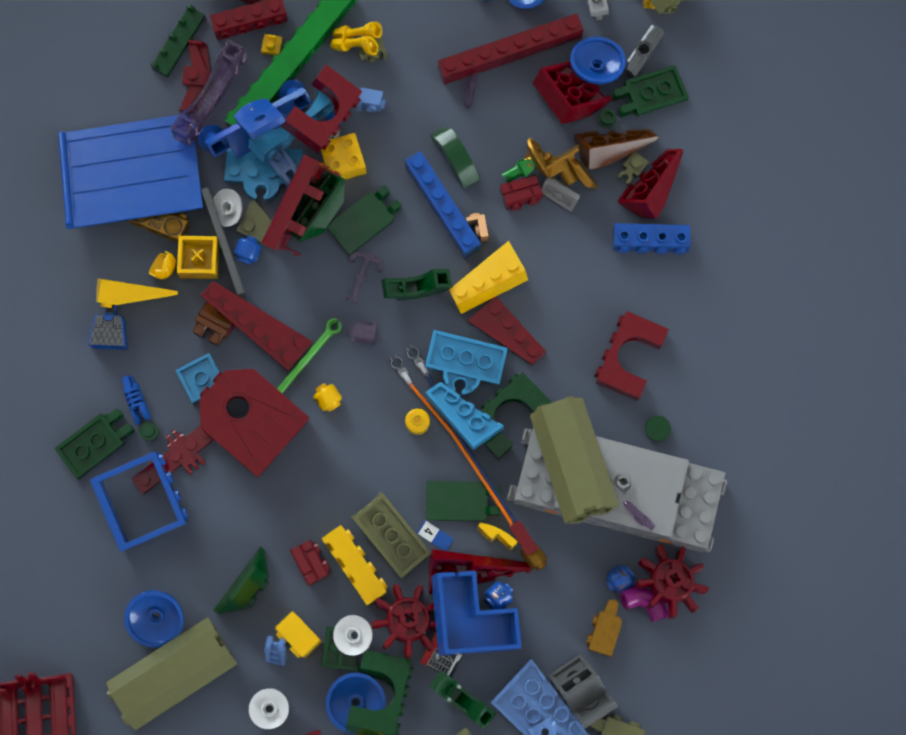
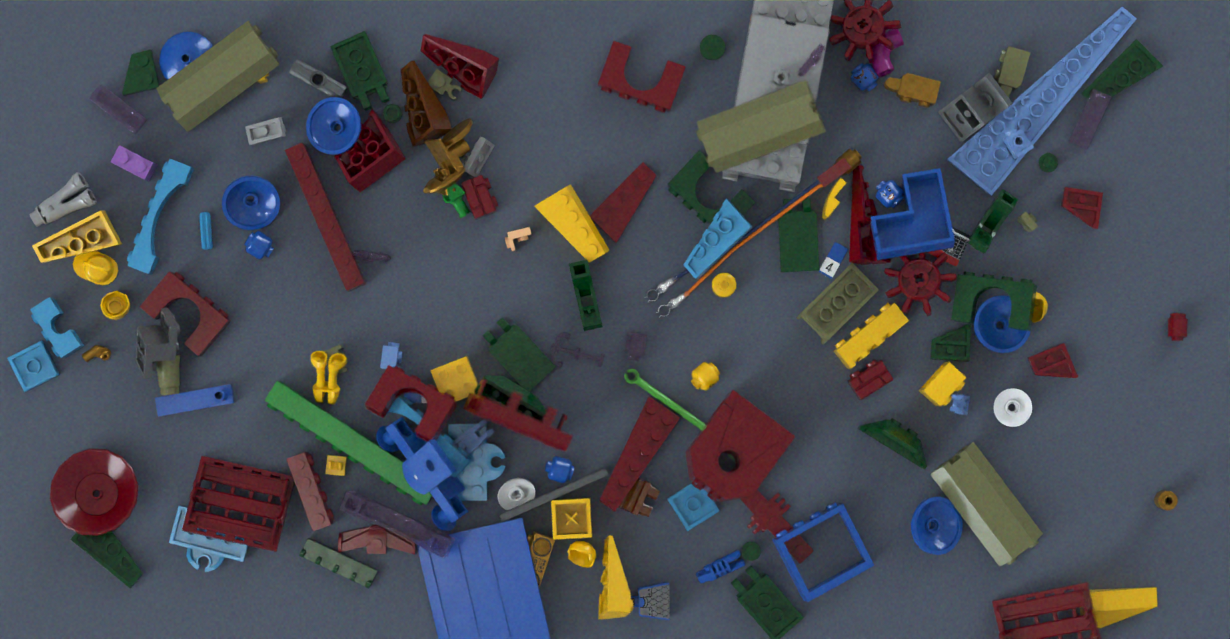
camera: 90 degrees left, 10 degrees up
(254, 222) = (531, 462): olive wing -> none
(343, 635) = (945, 338): white dish -> none
(442, 205) = (498, 276): blue brick -> none
(456, 155) = (445, 266): dark green arch -> none
(465, 360) = (658, 242): dark azure plate -> none
(651, 237) = (517, 62): blue brick -> none

